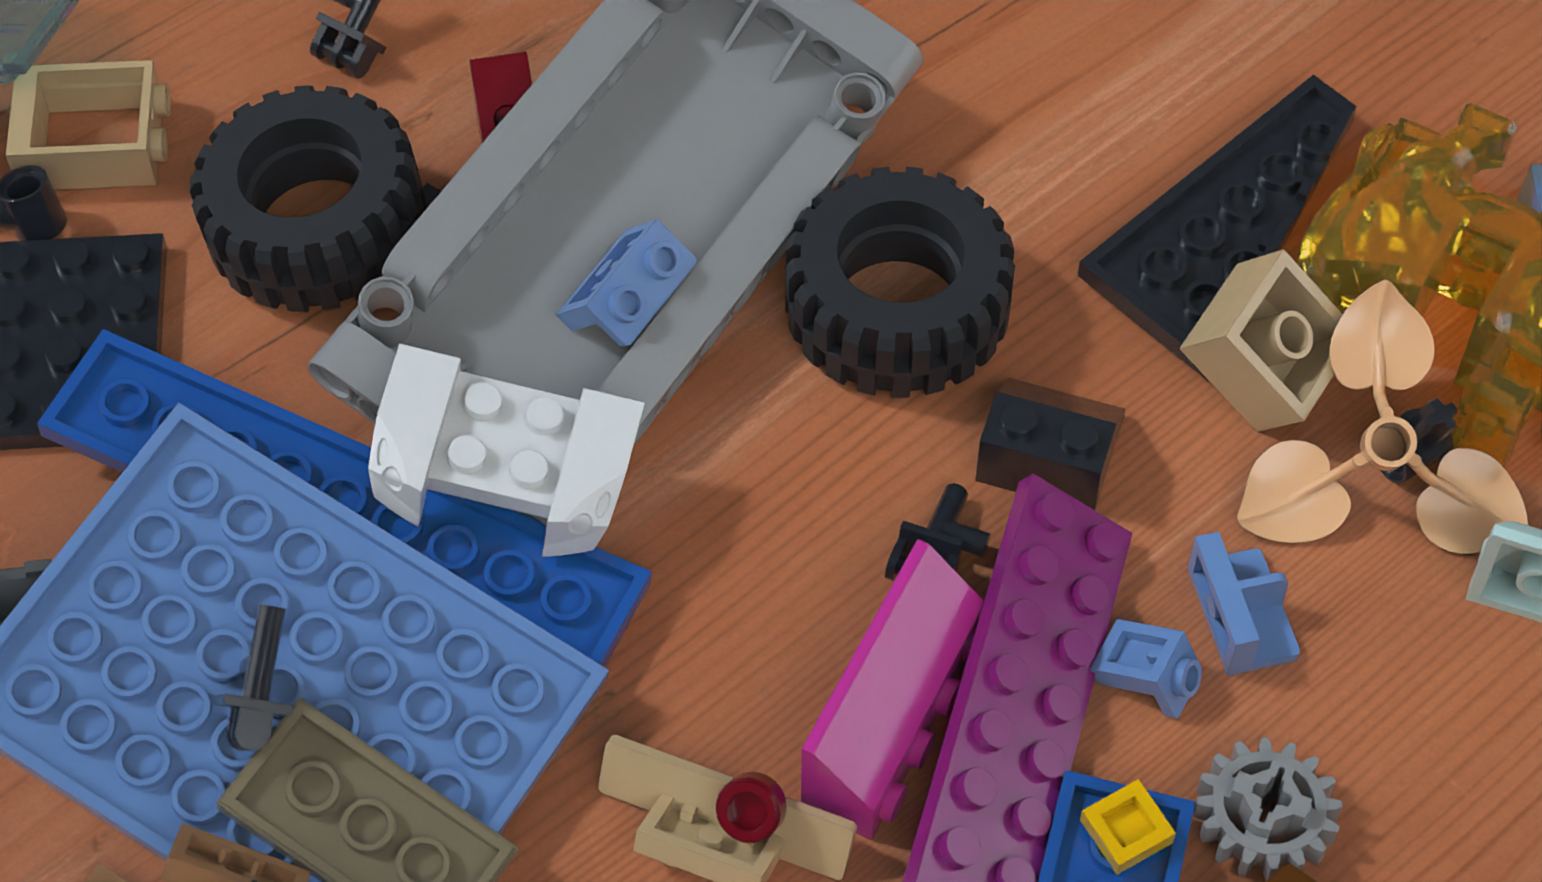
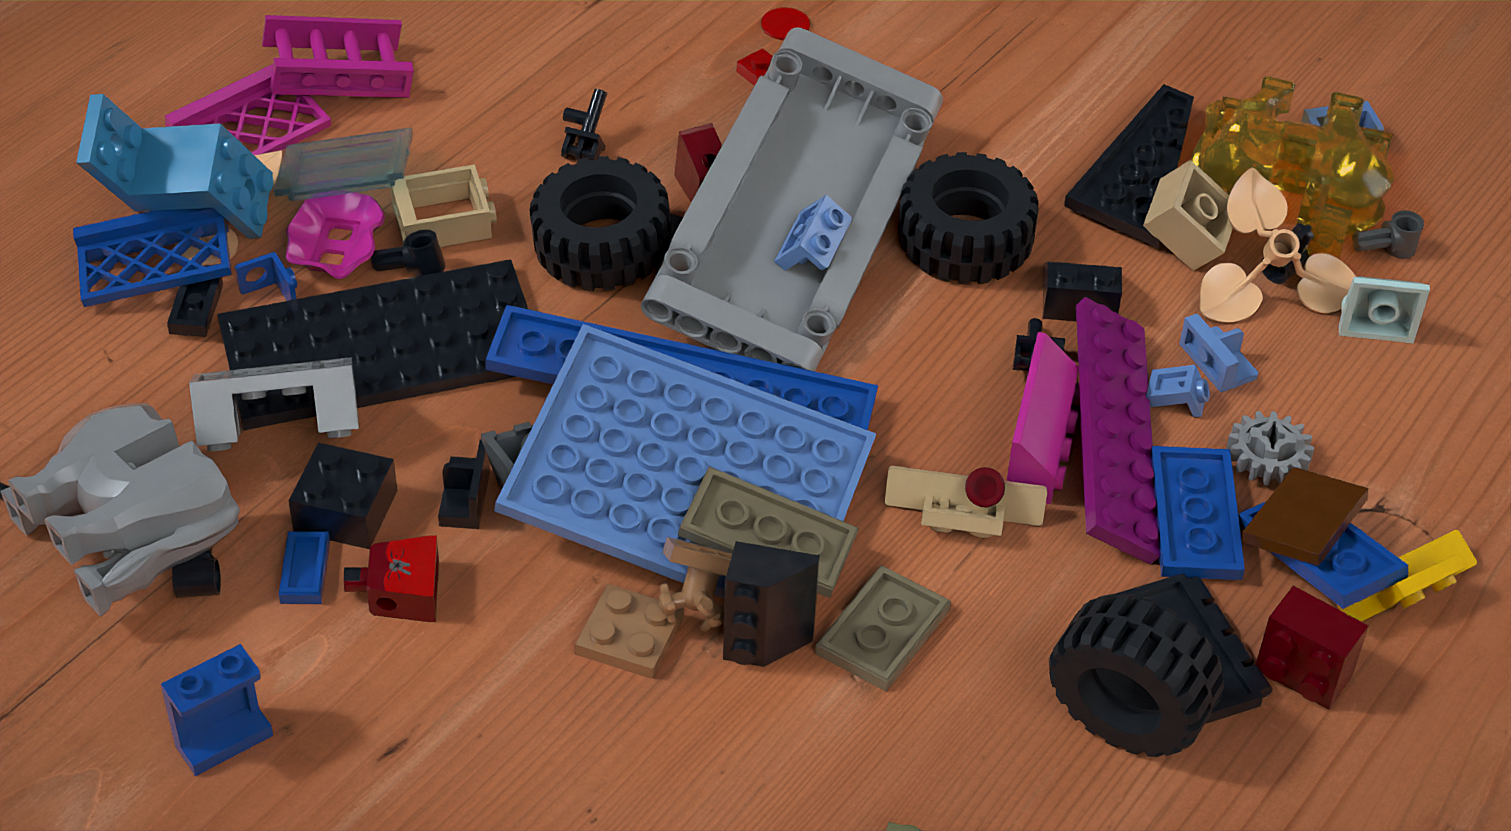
camera: 15 degrees left, 10 degrees down
(251, 712) = (686, 473): black arm -> none
(501, 447) = (778, 327): white piece -> none
(1127, 826) = (1198, 464): yellow tile -> none

